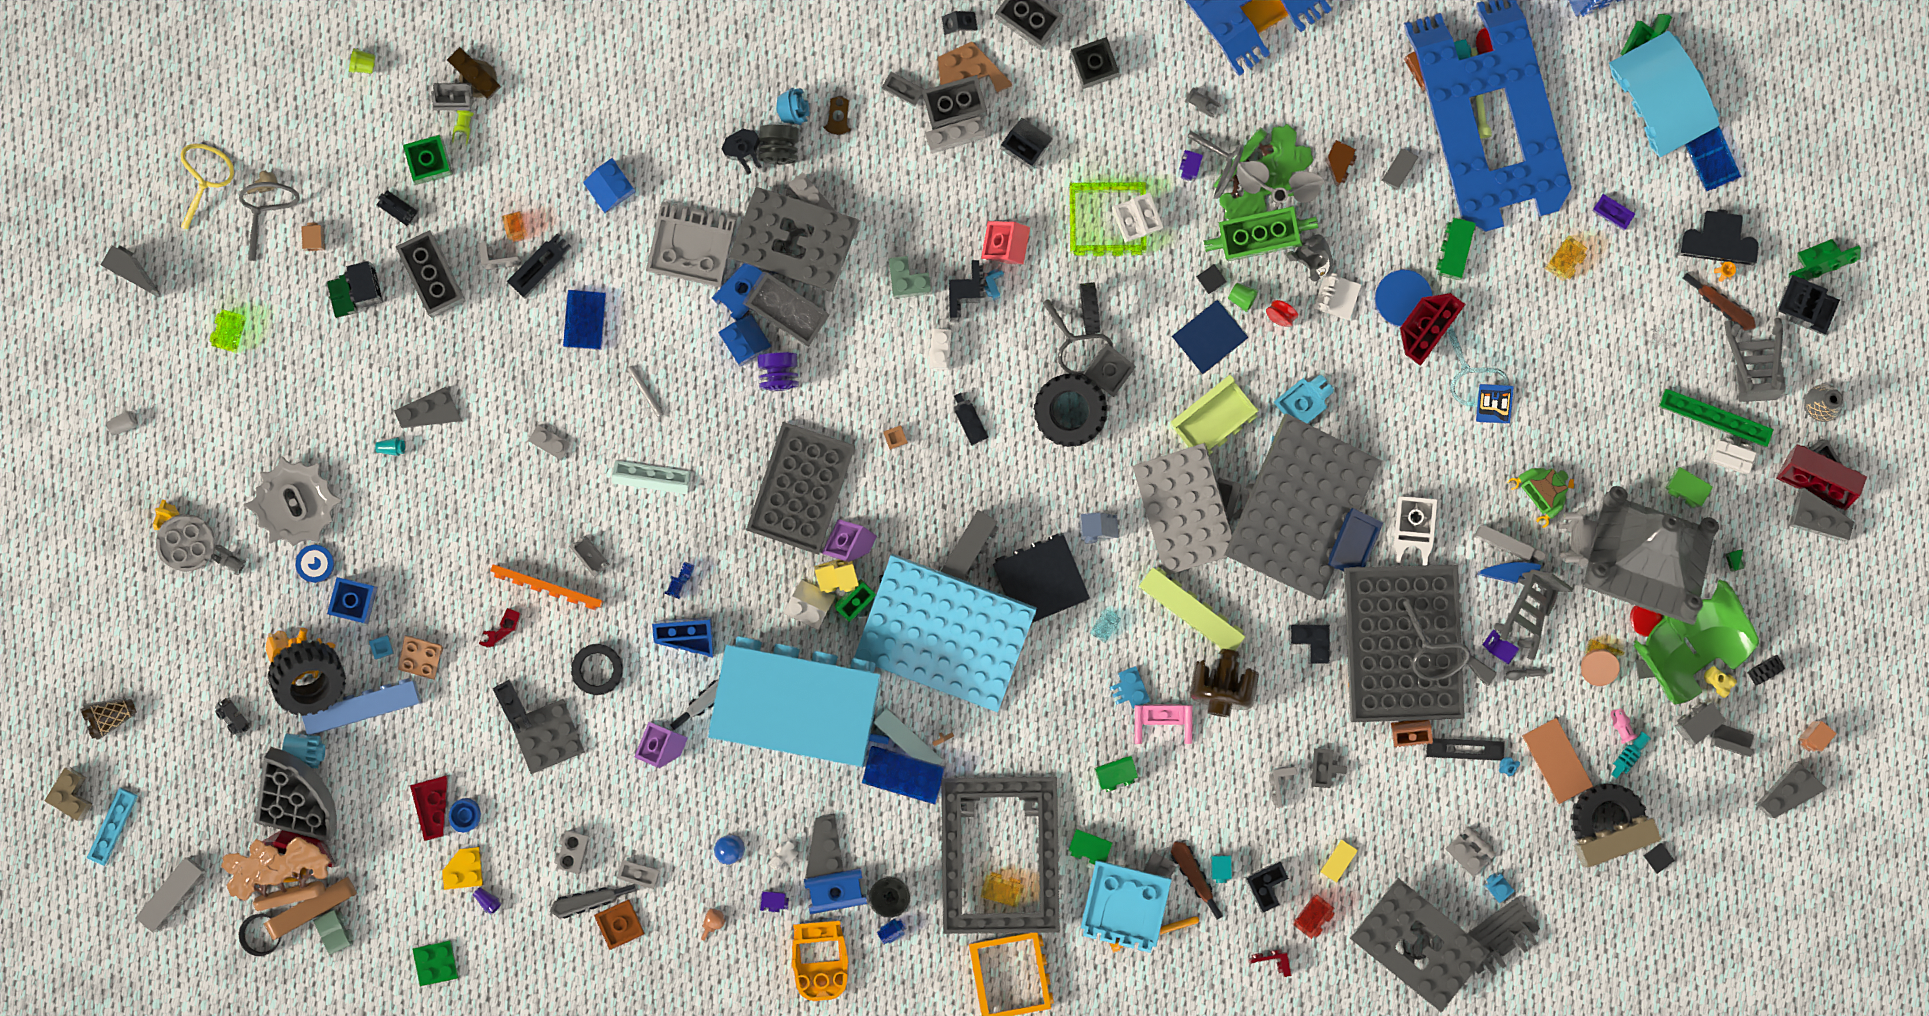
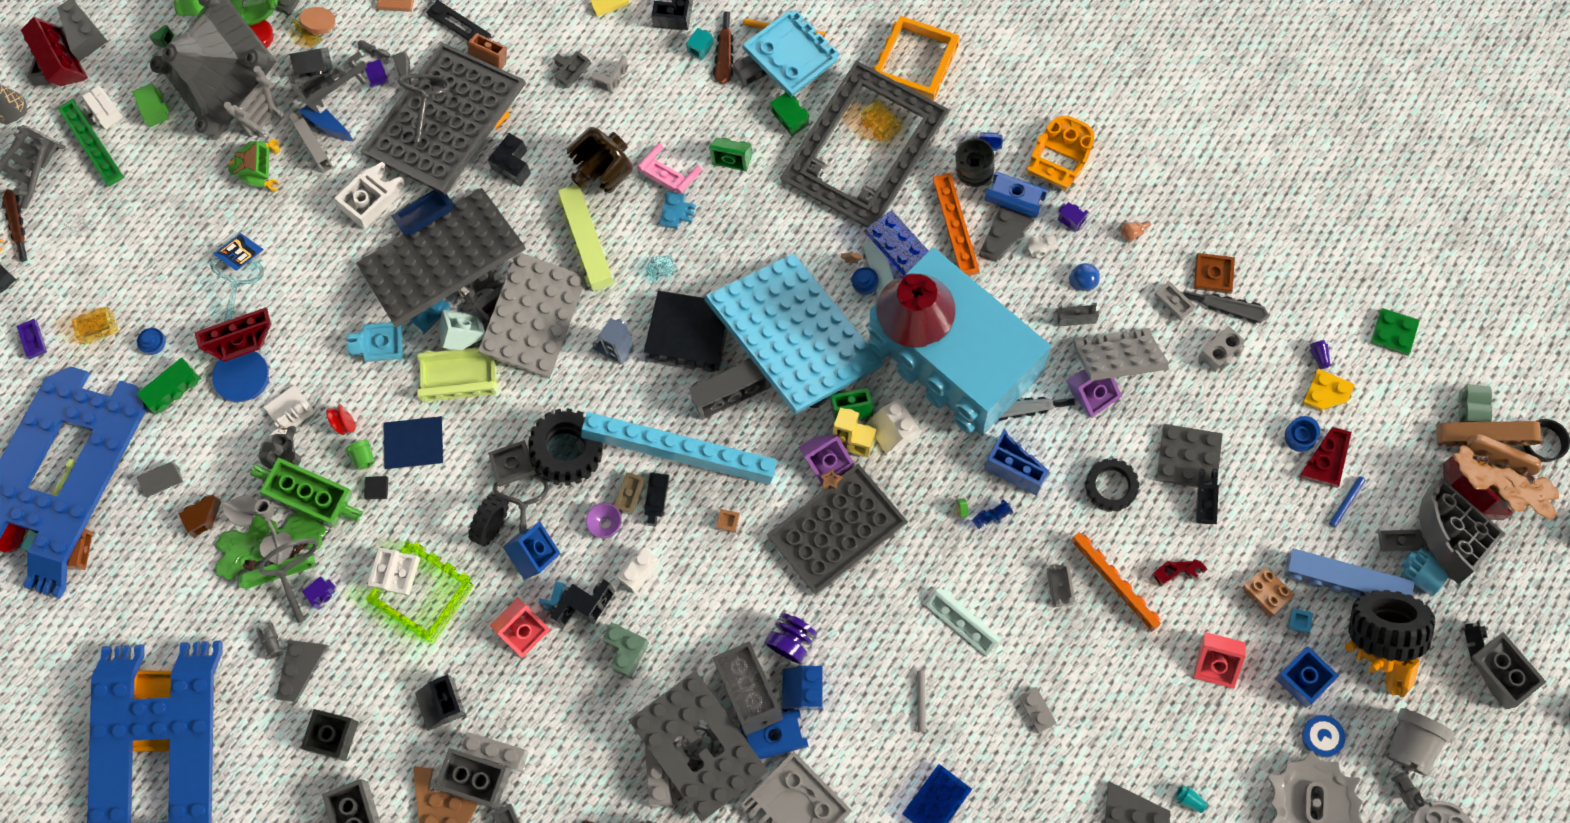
camera: 140 degrees left, 15 degrees down
(198, 702) = (1507, 672): none -> dark grey slope
(240, 600) = (1417, 741): none -> light grey piece
(336, 768) = (1400, 540): none -> dark grey plate
(396, 777) = (1347, 501): none -> blue bar
(428, 573) = (1219, 660): none -> coral slope
(652, 783) = (1119, 356): none -> light grey hinge
(708, 570) = (962, 508): none -> bright green tile
(715, 809) = (1077, 315): none -> dark grey hinge
(831, 524) = (830, 479): none -> medium nougat piece
(857, 706) = (915, 310): none -> dark red cone
(872, 829) = (955, 224): none -> orange plate
(917, 724) = (865, 281): none -> blue plate
(972, 466) = (678, 448): none -> medium azure brick
(993, 408) = (629, 493): none -> dark tan plate
(1001, 361) = (599, 512): none -> medium lavender piece
(1037, 307) = (531, 550): none -> blue slope
(1163, 97) = (298, 667): none -> dark grey wing
(1237, 454) = (459, 330): none -> light aqua slope
(1505, 276) = (151, 341): none -> blue plate
(1569, 621) = (310, 61): none -> black brick

